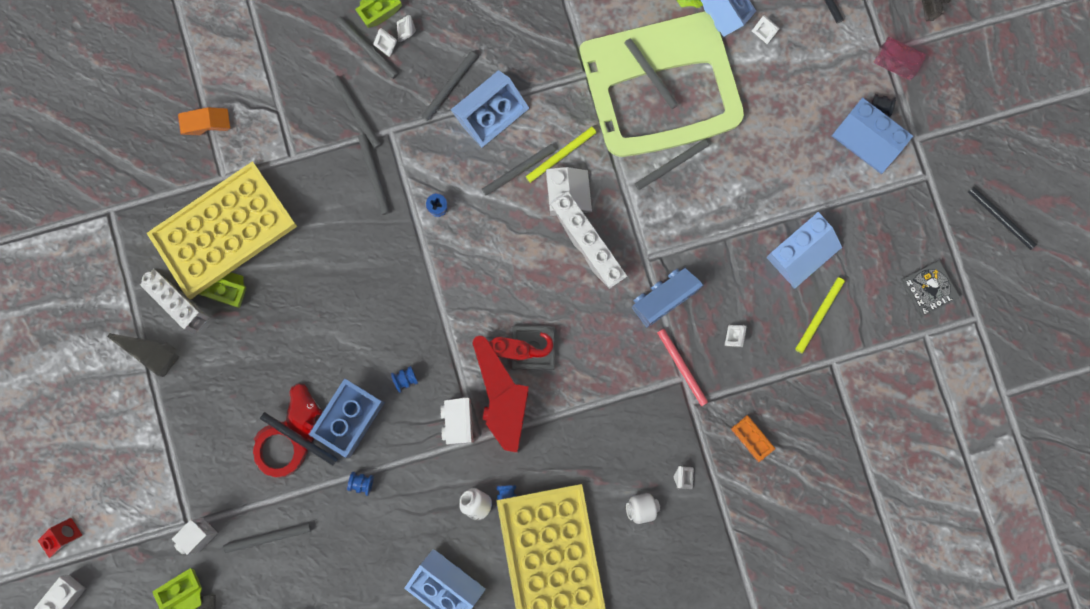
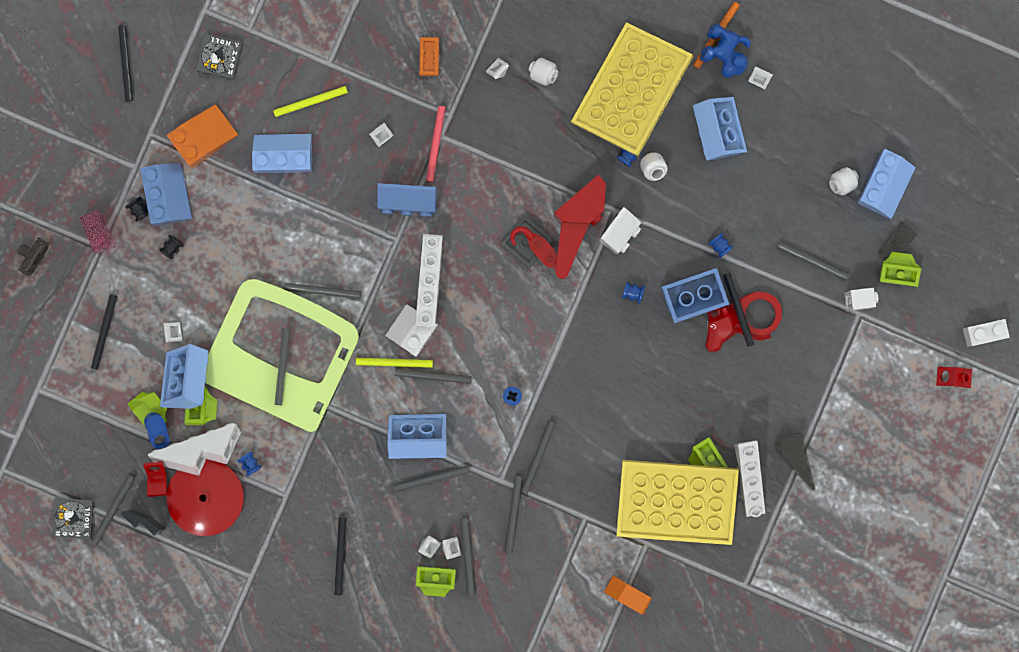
camera: 140 degrees left, 5 degrees up
(828, 96) = (171, 247): none -> black bush
(884, 208) = (202, 136): none -> orange slope

